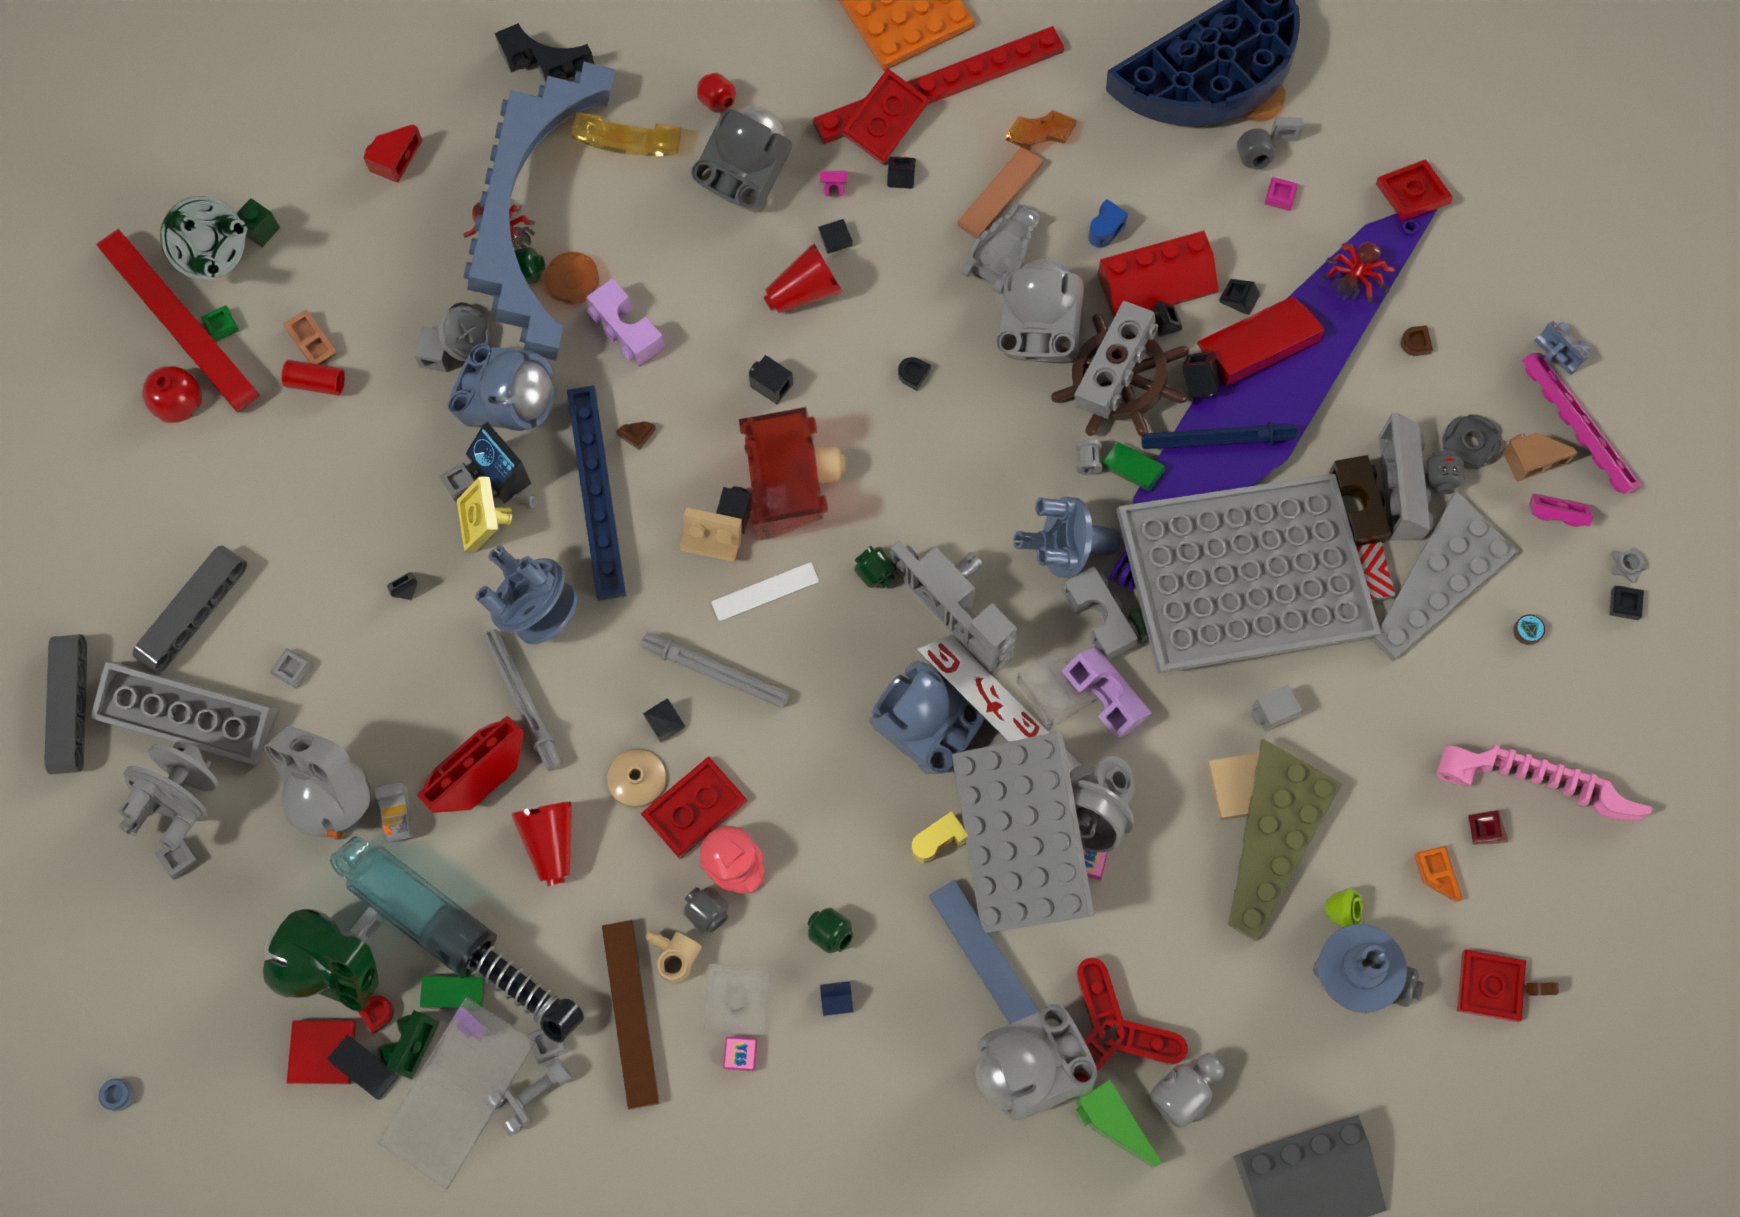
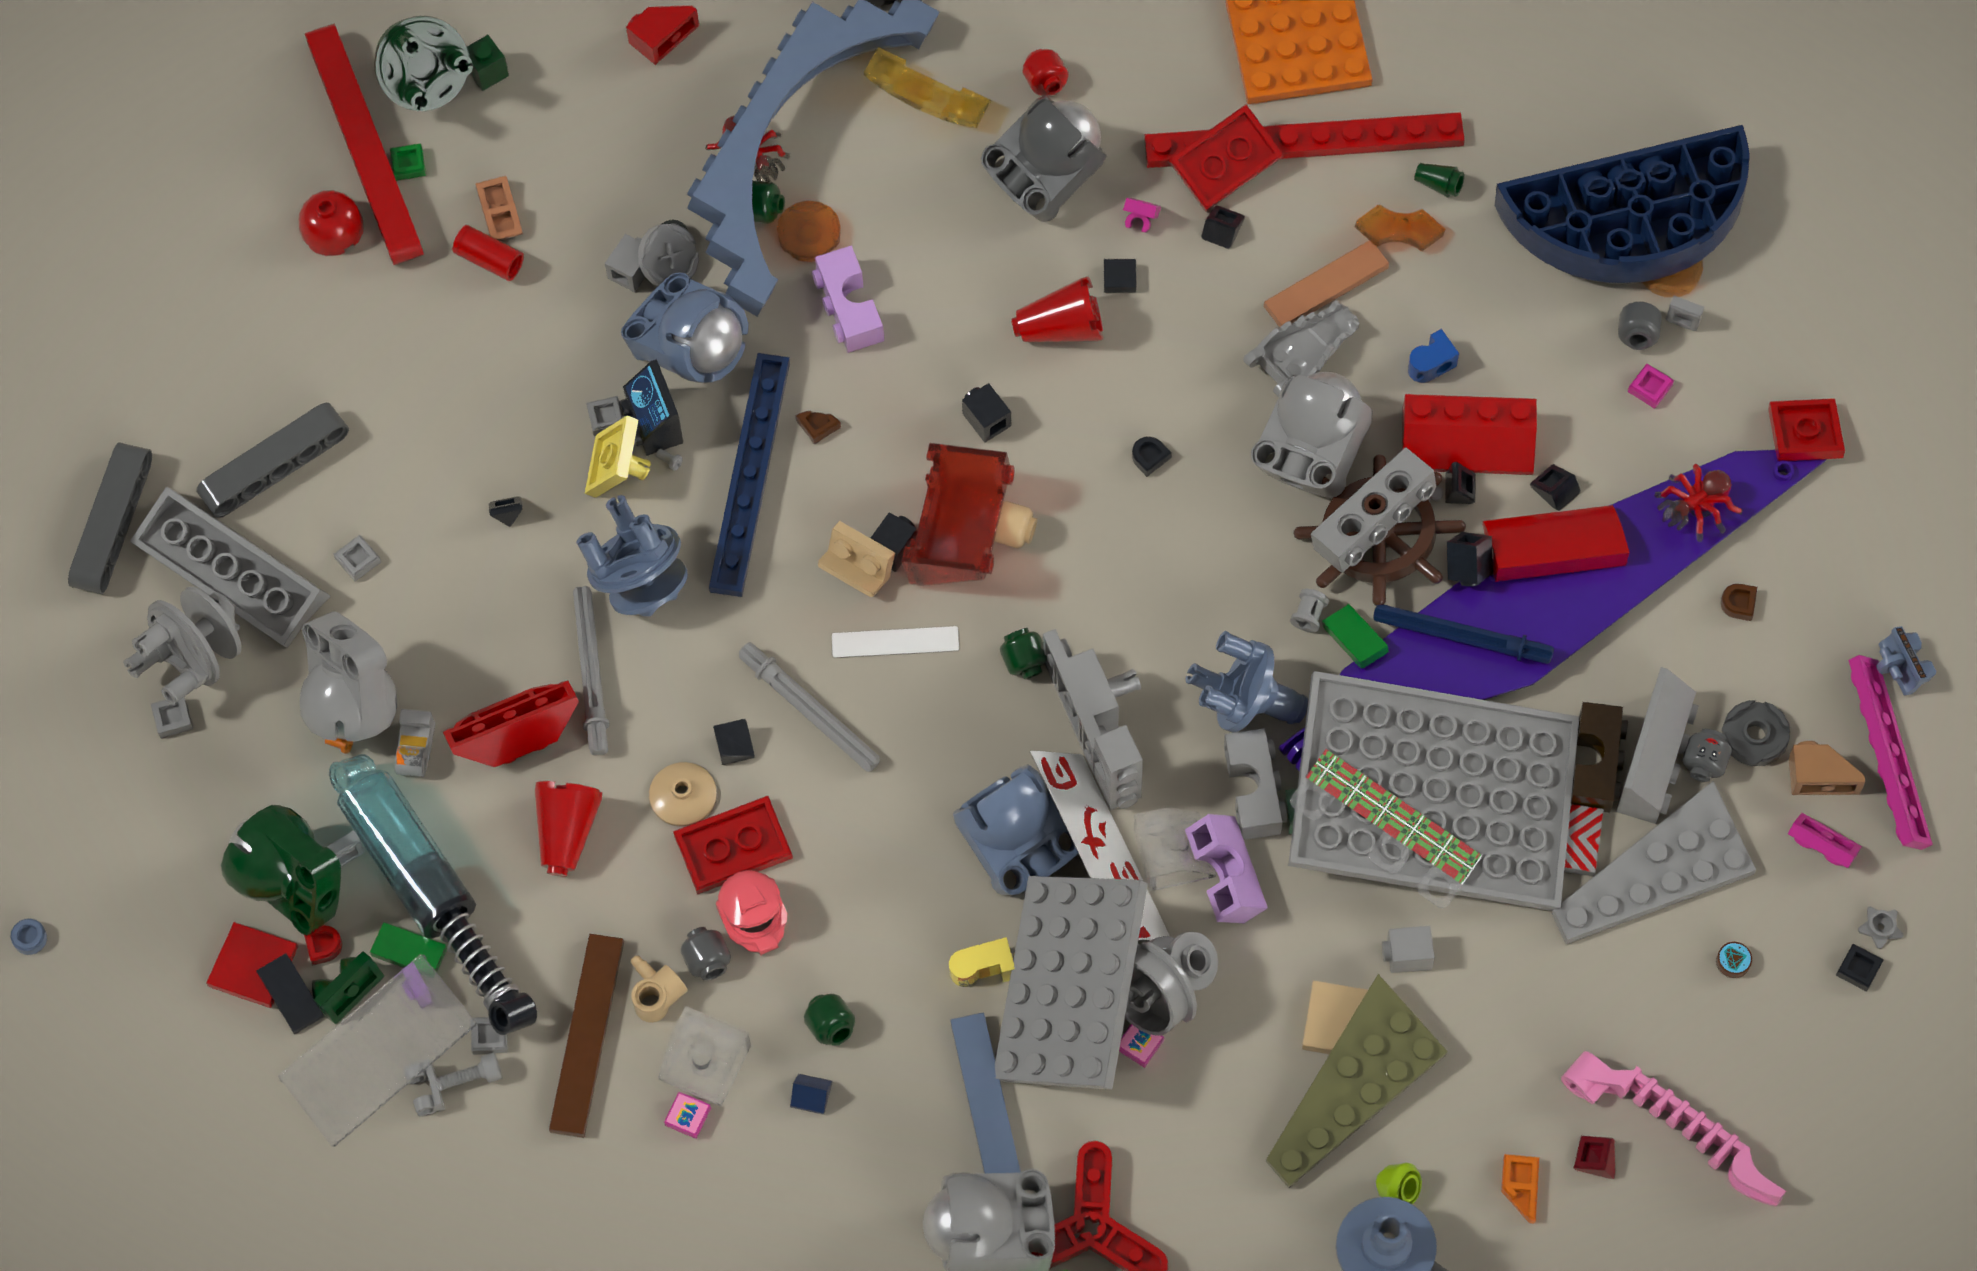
camera: 20 degrees right, 5 degrees down
(1057, 82) = (1440, 178): none -> dark green cone
(1233, 607) = (1399, 821): none -> clear piece

